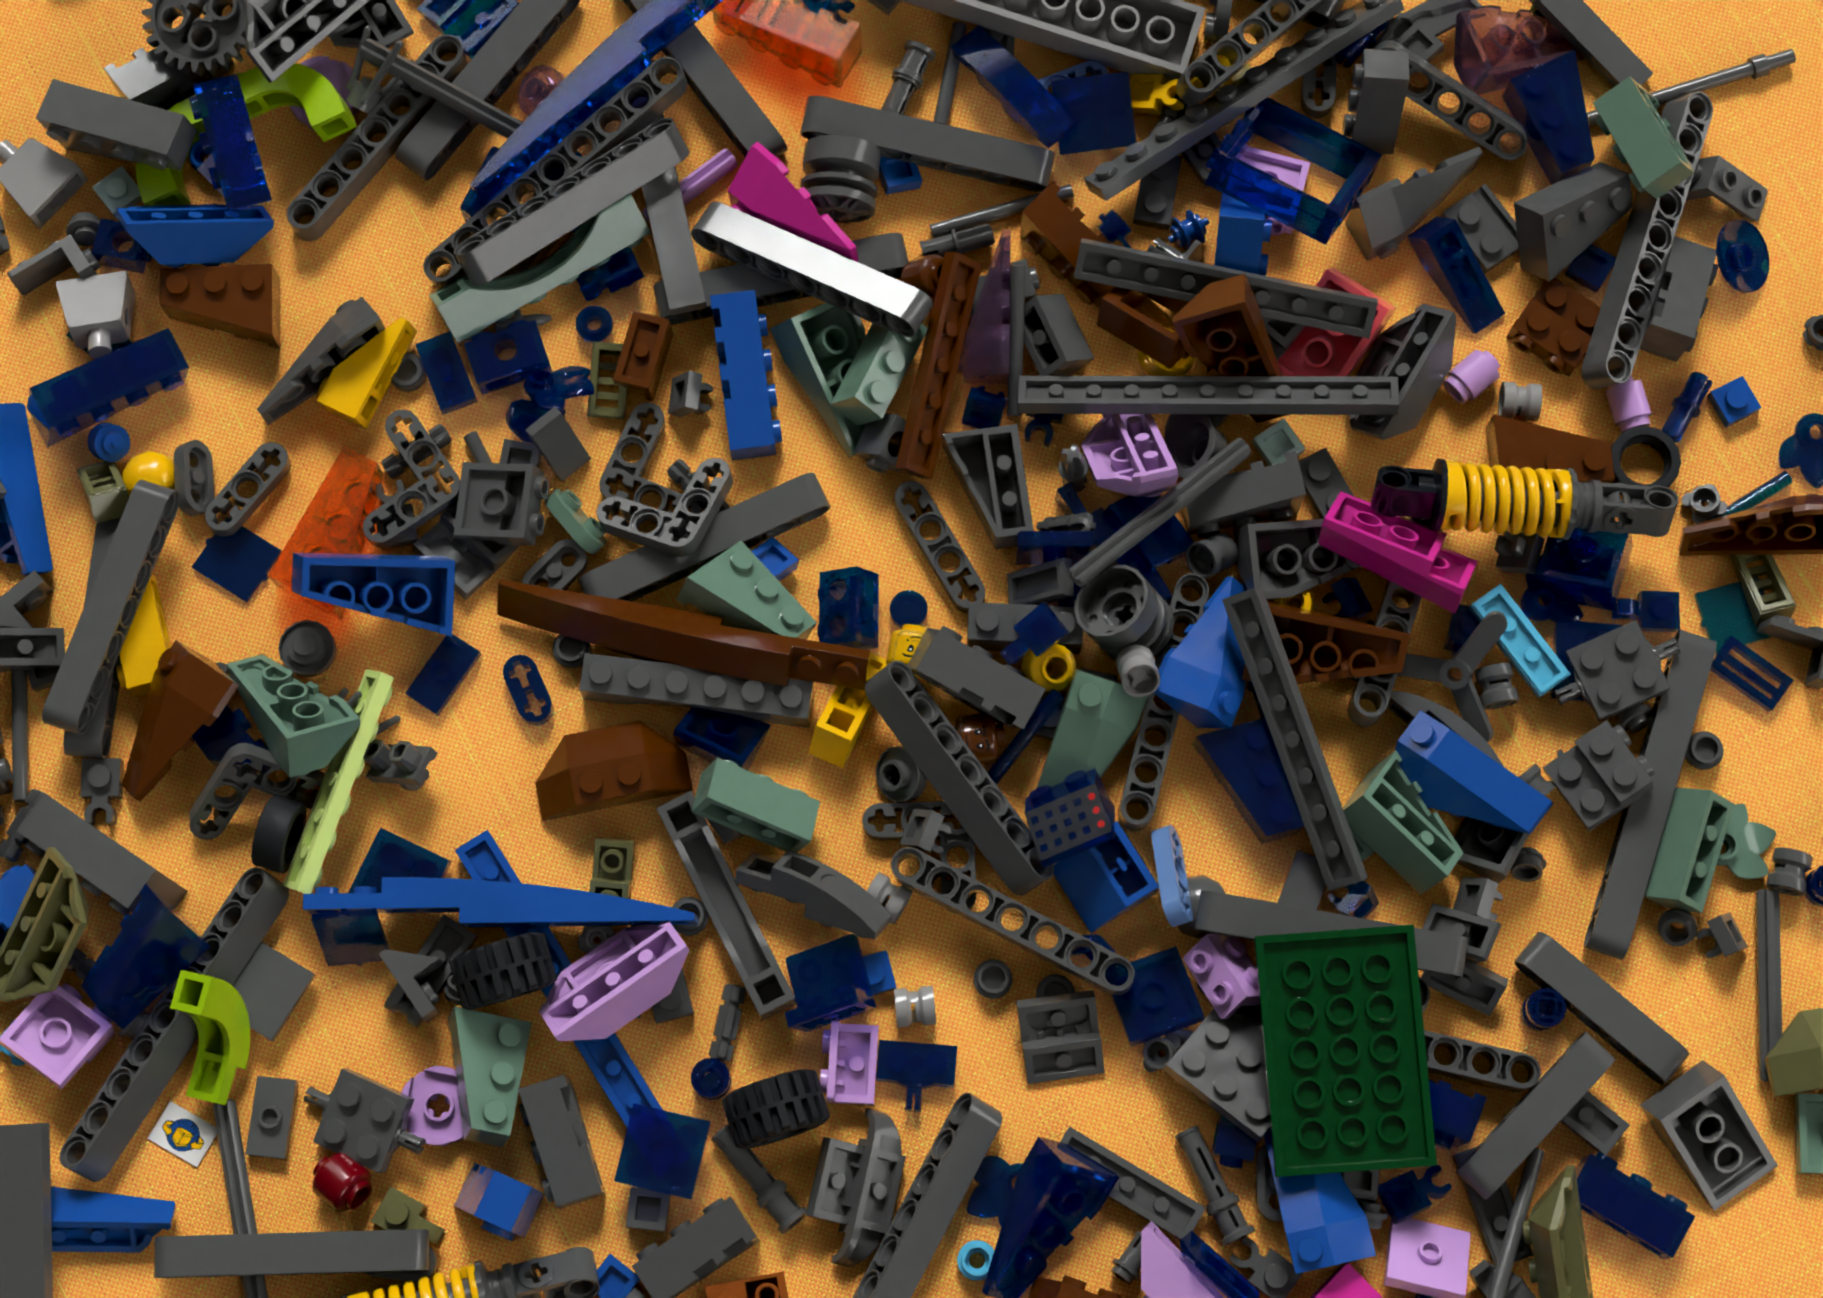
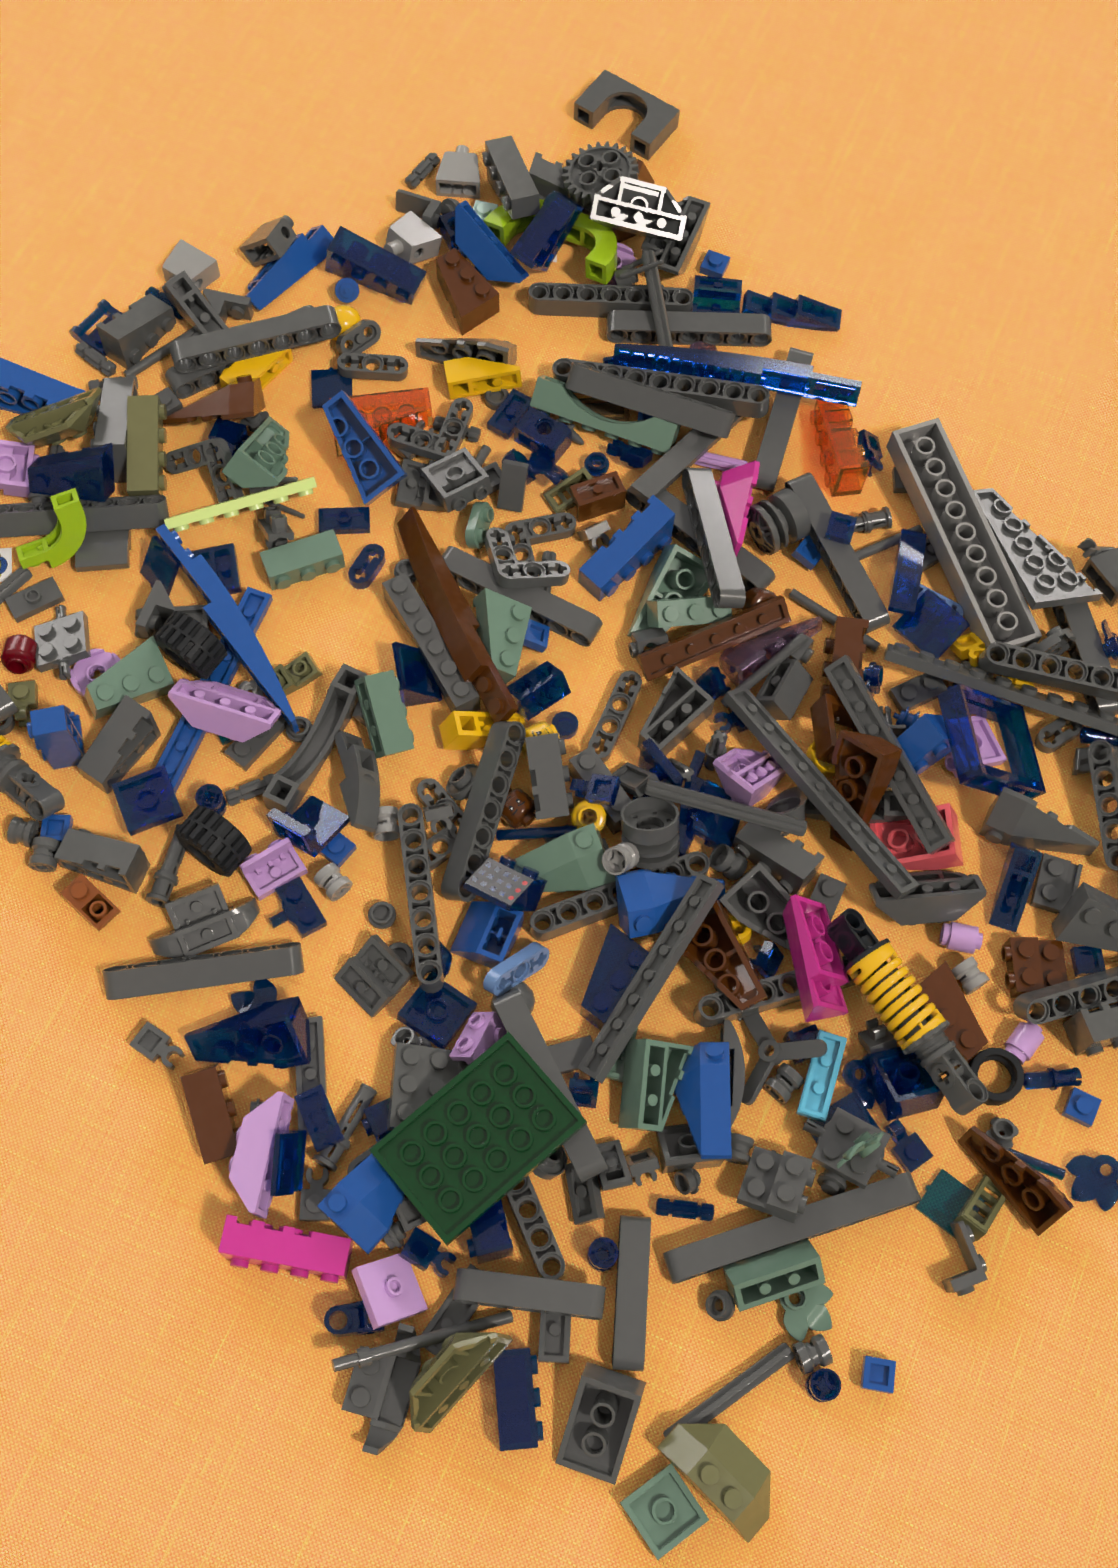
camera: 50 degrees right, 10 degrees down
(103, 490) = (316, 297): olive slope -> none
(166, 846) = (145, 445): none -> olive brick
(278, 834) = (190, 485): black tyre -> none
(307, 648) = (307, 448): dark grey plate -> none
(466, 760) = (302, 560): none -> sand green brick
(550, 566) = (444, 532): dark grey plate -> none
(610, 770) = (352, 634): reddish brown wedge -> none
(648, 1210) = (110, 819): dark grey plate -> none
(912, 118) = (840, 527): none -> clear blue plate
(960, 241) = (796, 607): dark grey axle -> none
(963, 1259) = (202, 1012): medium azure plate -> none
(1190, 1207) = (319, 1118): none -> clear blue plate
(1276, 442) = (832, 855): light aqua plate -> none
(1378, 99) = (1074, 761): dark grey brick -> none
(1553, 889) = (684, 1209): none -> clear blue axle
(1634, 656) = (864, 1145): none -> sand green plate
(1704, 750) = (847, 1243): dark grey plate -> none
(1726, 934) = (739, 1340): dark grey tile -> none
(1741, 685) = (920, 1265): clear blue tile -> none

